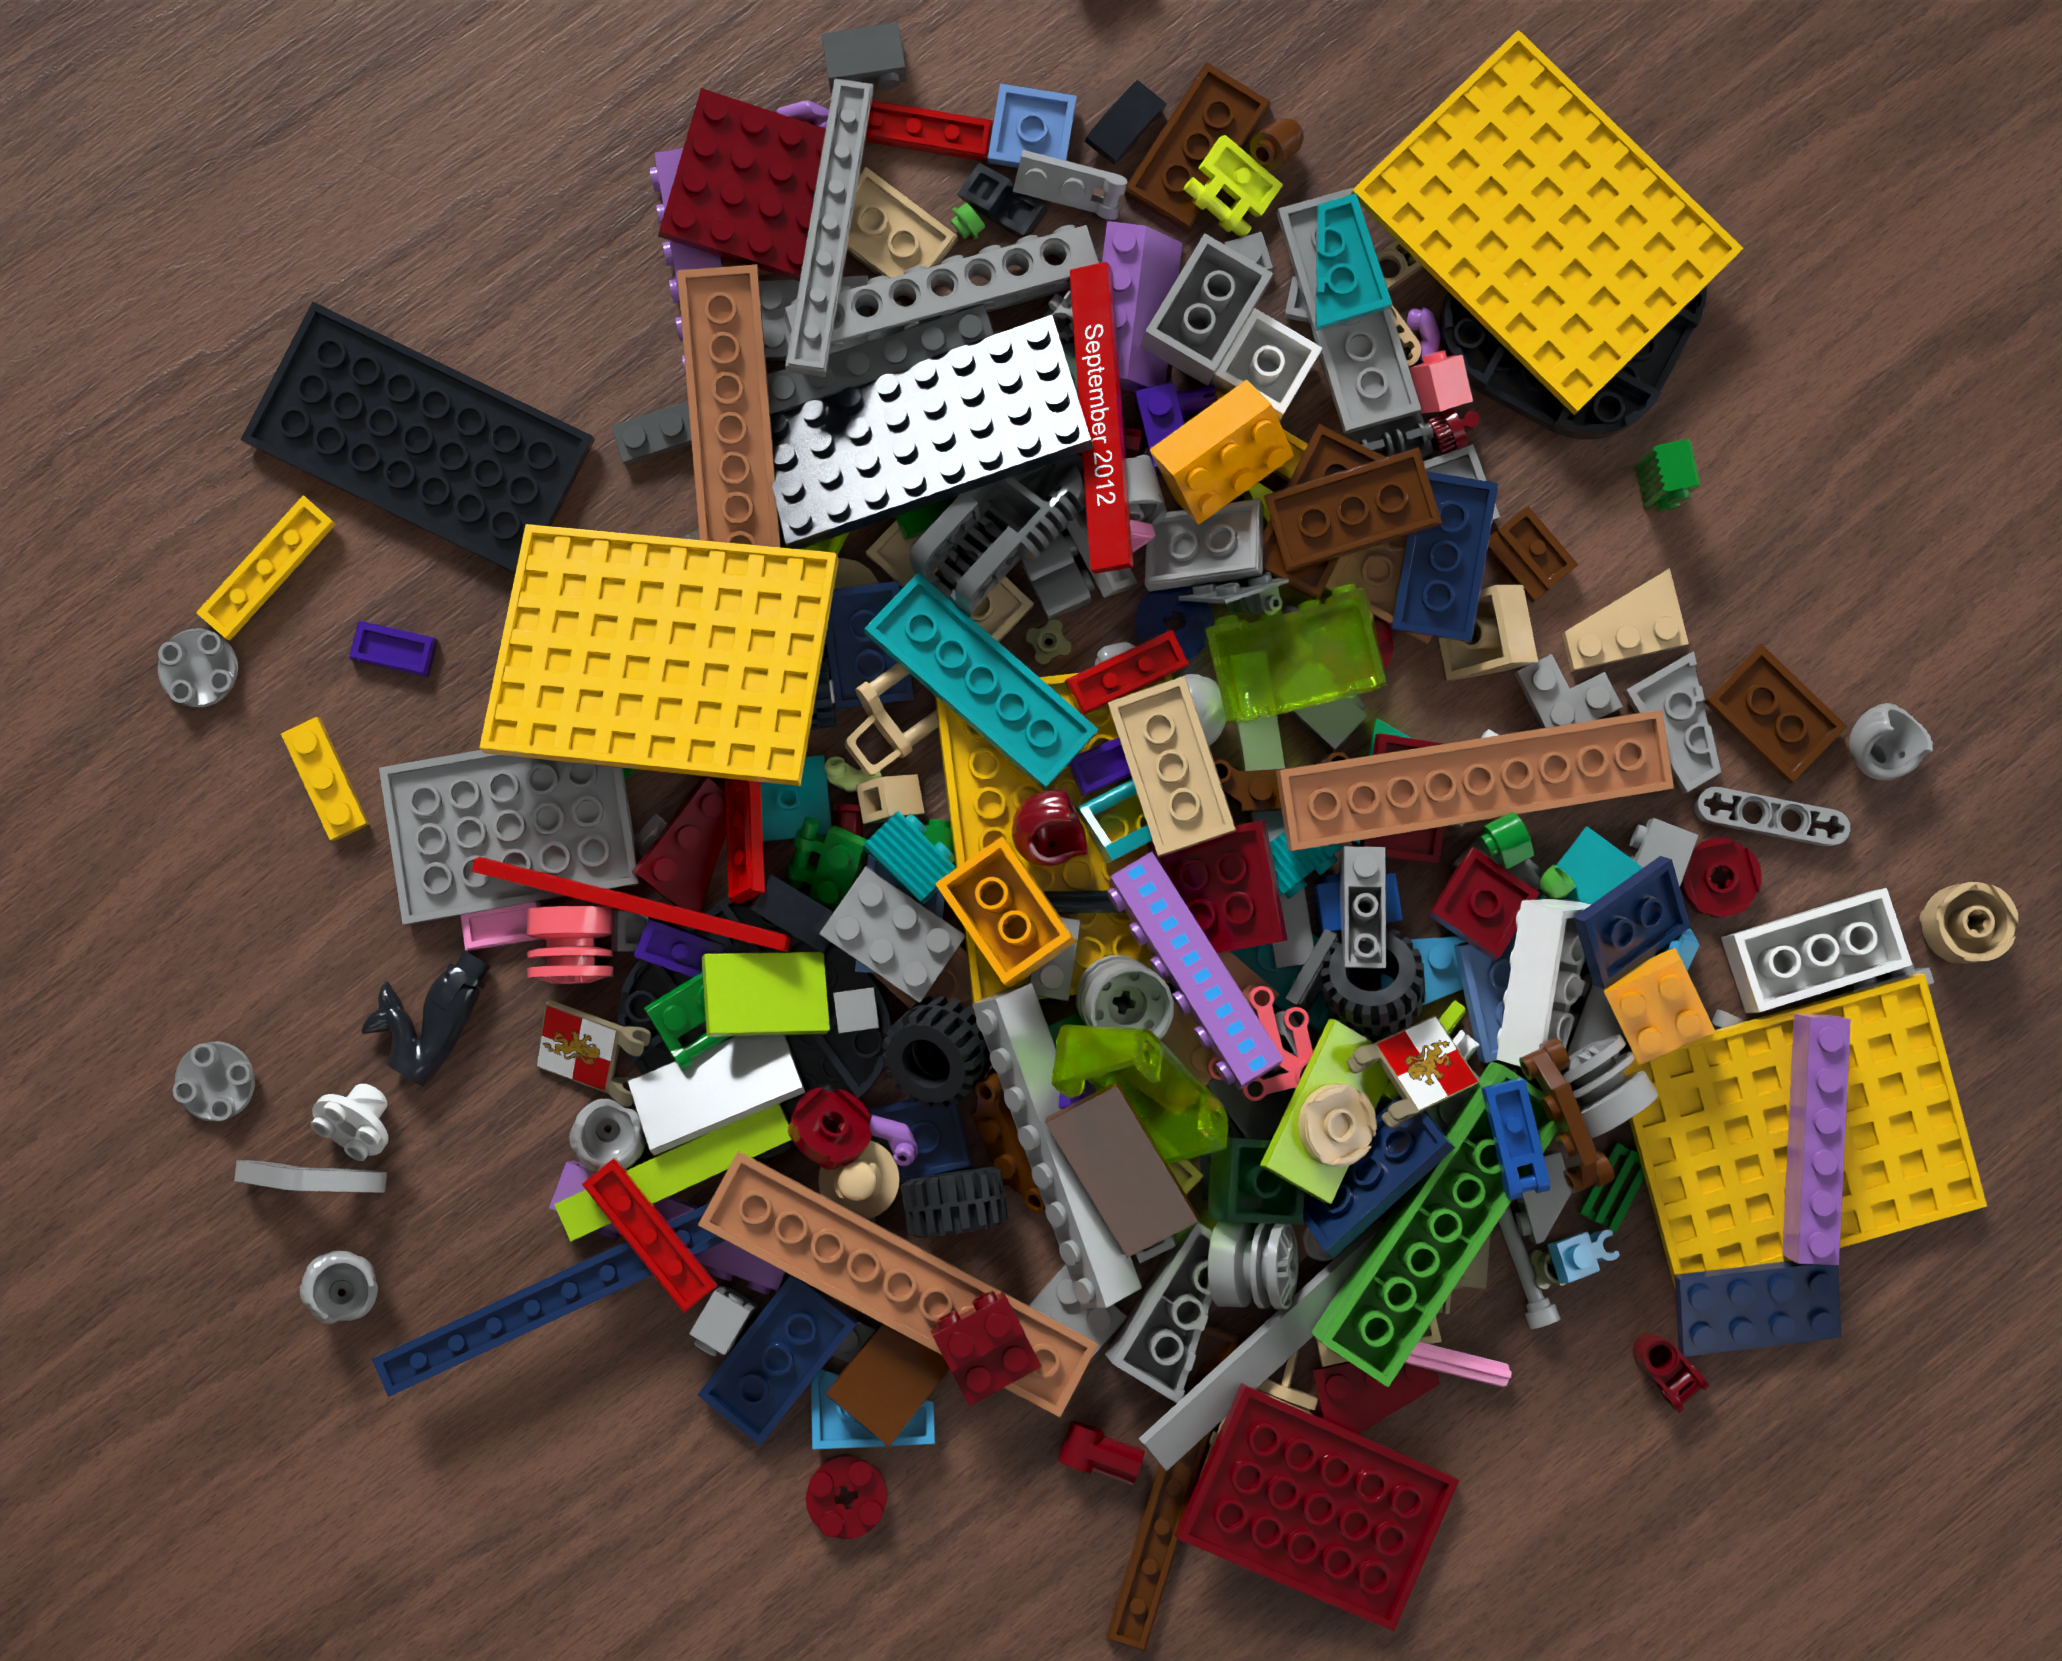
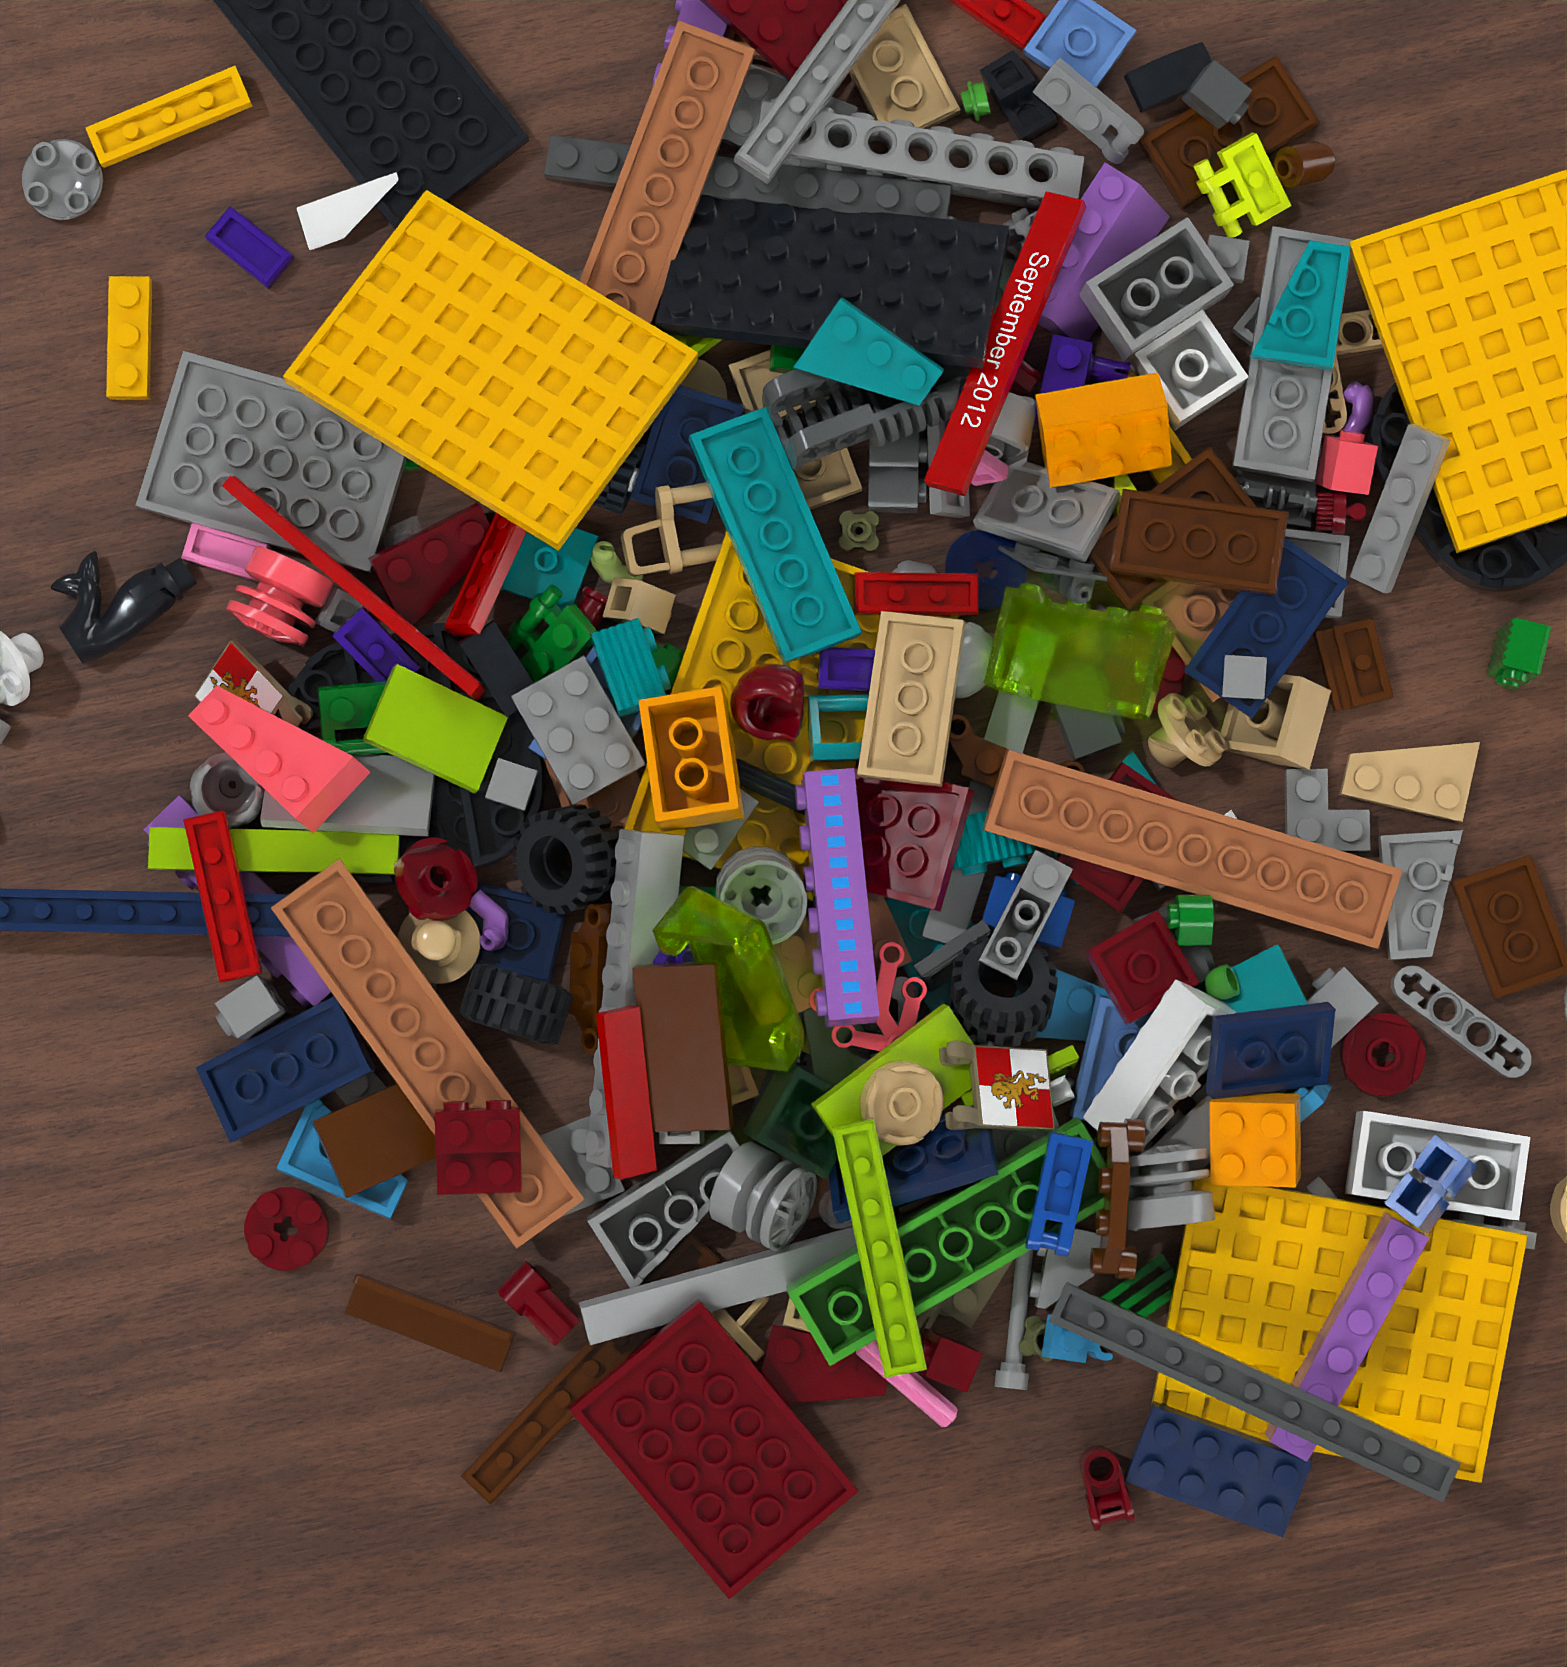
camera: 35 degrees right, 0 degrees up
(458, 582) = (338, 214): none -> white sticker
(651, 1089) = (290, 764): none -> coral wedge
(989, 484) = (868, 356): none -> teal wing
(1013, 1516) = (430, 1322): none -> reddish brown panel
(1091, 1233) = (626, 1091): none -> red tile
(1175, 118) = (1218, 95): none -> dark grey brick
(1382, 1263) = (879, 1247): none -> lime tile
(1417, 682) = (1185, 733): none -> tan plate
(1448, 608) = (1244, 677): none -> light grey tile
(1479, 1328) = (949, 1360): none -> dark red brick
(1506, 399) = (1400, 508): none -> light grey plate
(1769, 1227) = (1255, 1392): none -> dark grey plate
(1832, 955) = (1445, 1173): none -> blue piece

